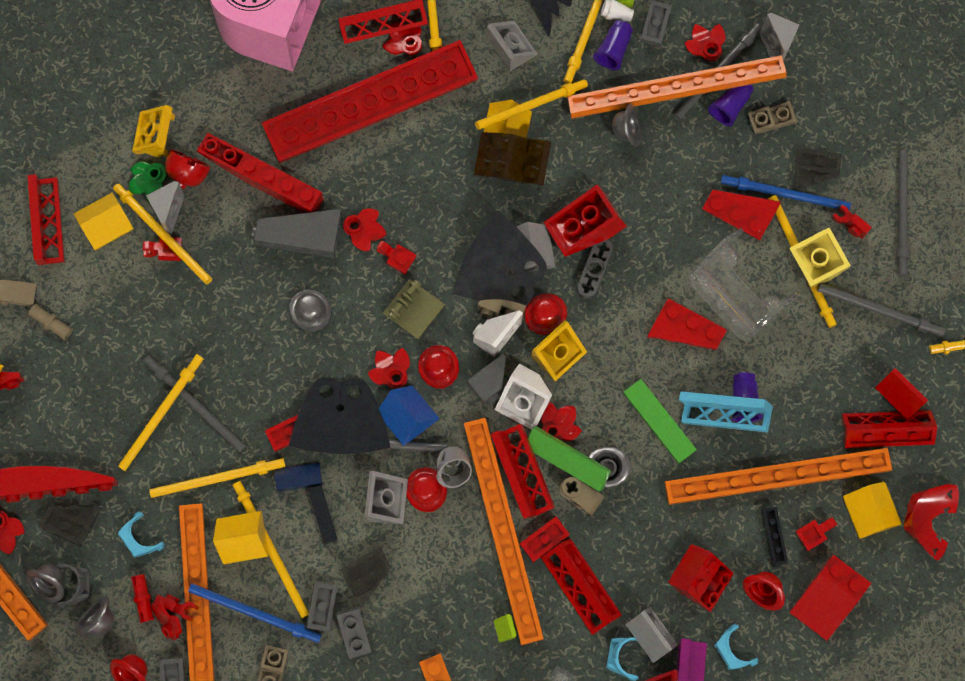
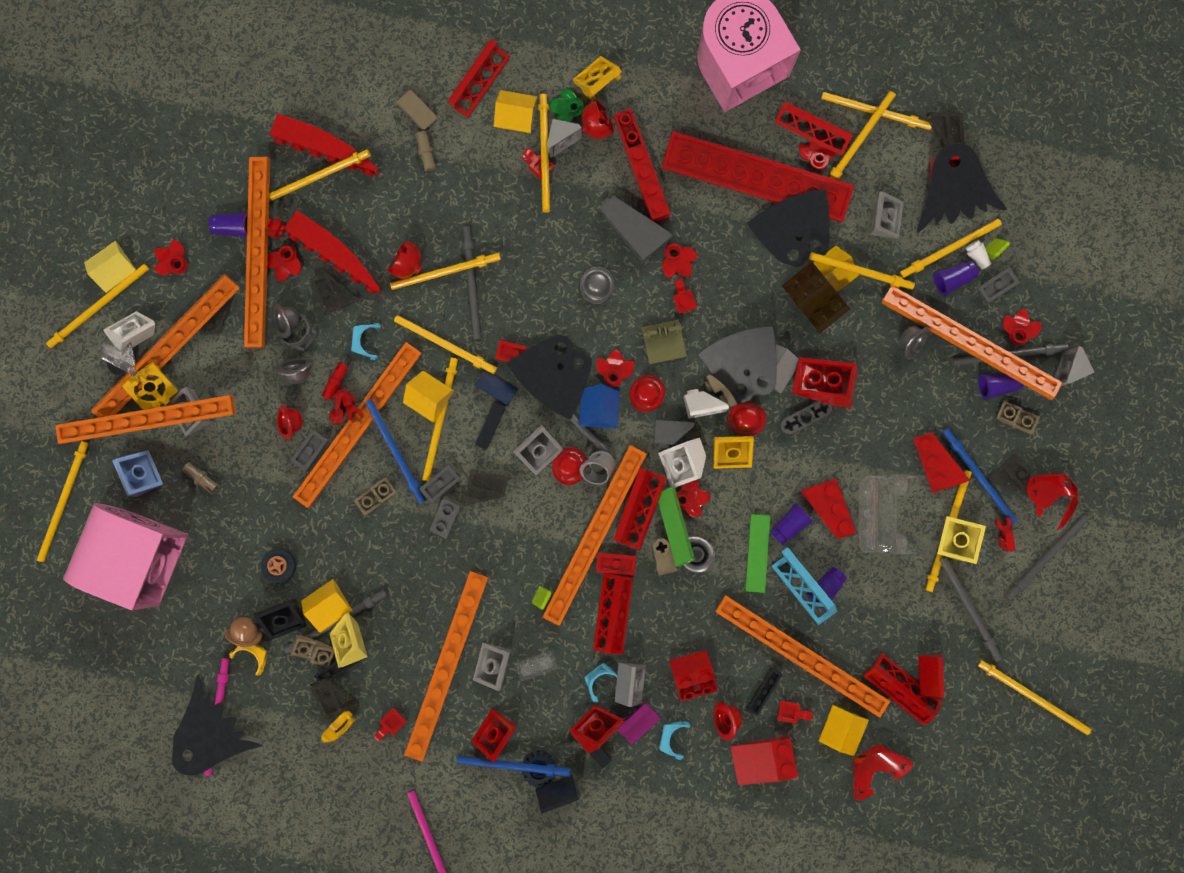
camera: 50 degrees right, 10 degrees up
(116, 432) = (406, 261): none -> red cylinder
(427, 116) = (800, 214): none -> black piece
(665, 369) = (790, 524): none -> dark purple plant
(853, 153) = (1049, 489): none -> red piece

